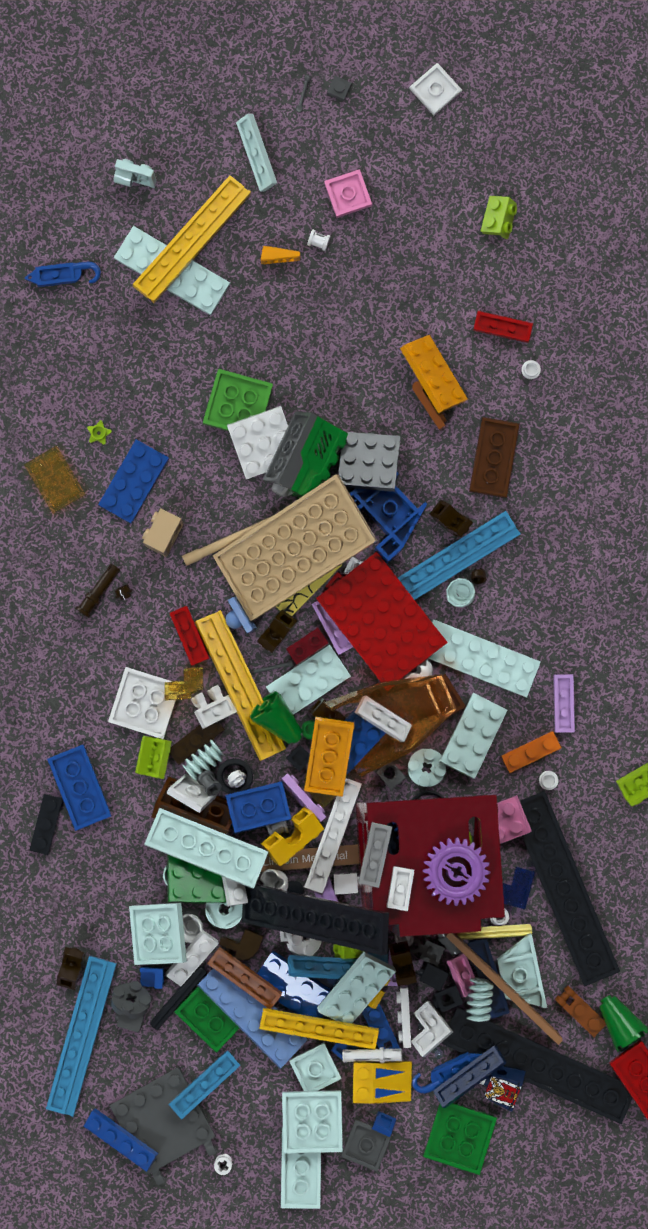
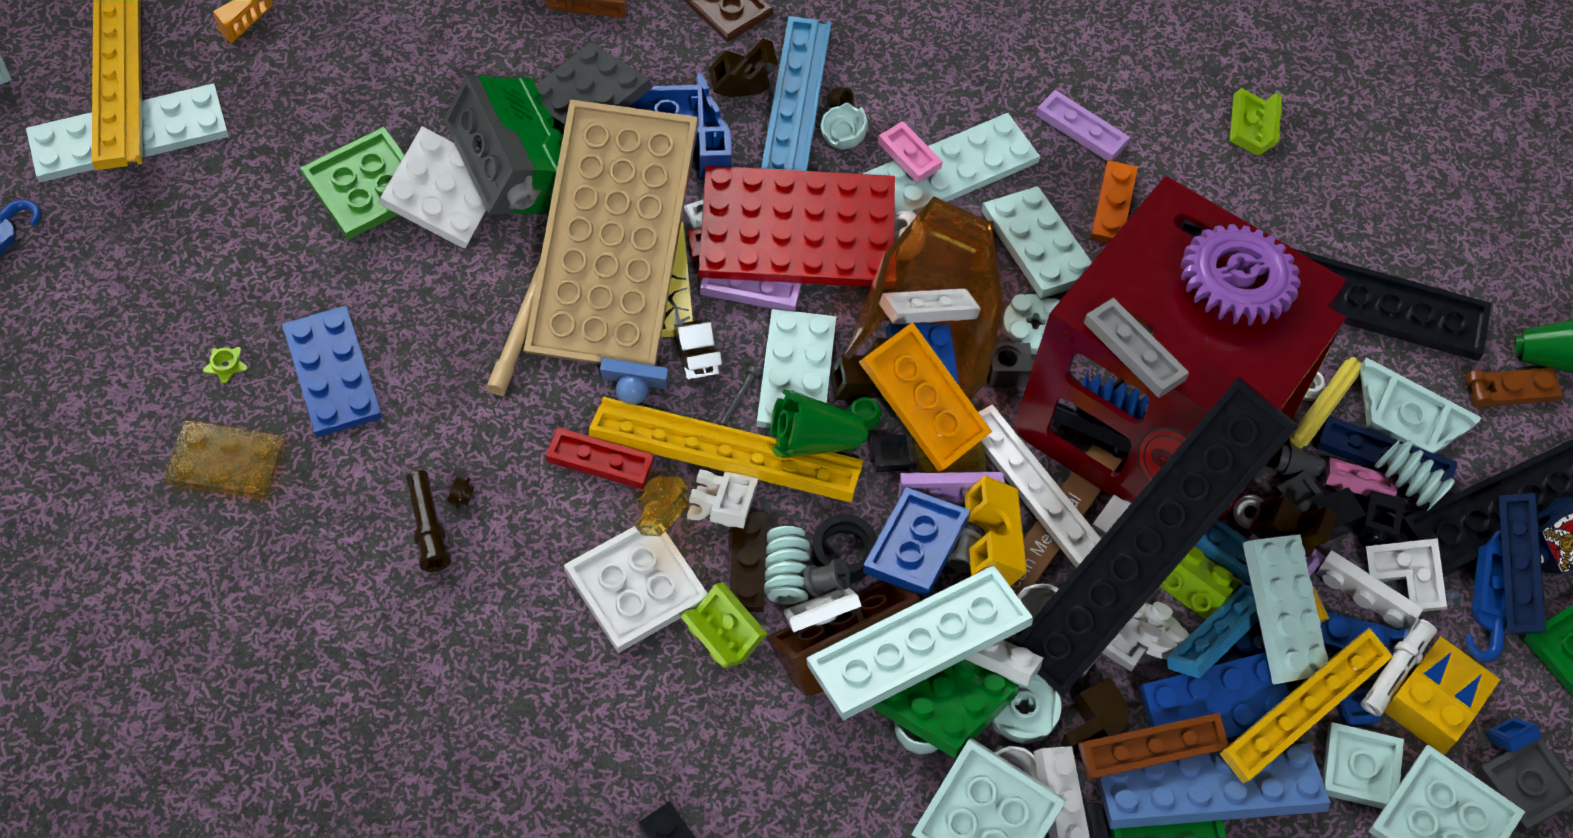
camera: 55 degrees left, 25 degrees down
(79, 787) = (674, 764): blue plate -> none
(162, 532) = (433, 374): tan brick -> none
(236, 778) = (852, 539): white plate -> none
(307, 646) = (750, 331): dark red brick -> none
(400, 888) = (1210, 353): white plate -> none
(468, 638) = (910, 152): none -> bright pink plate
(505, 987) = (1421, 433): medium nougat tile -> none

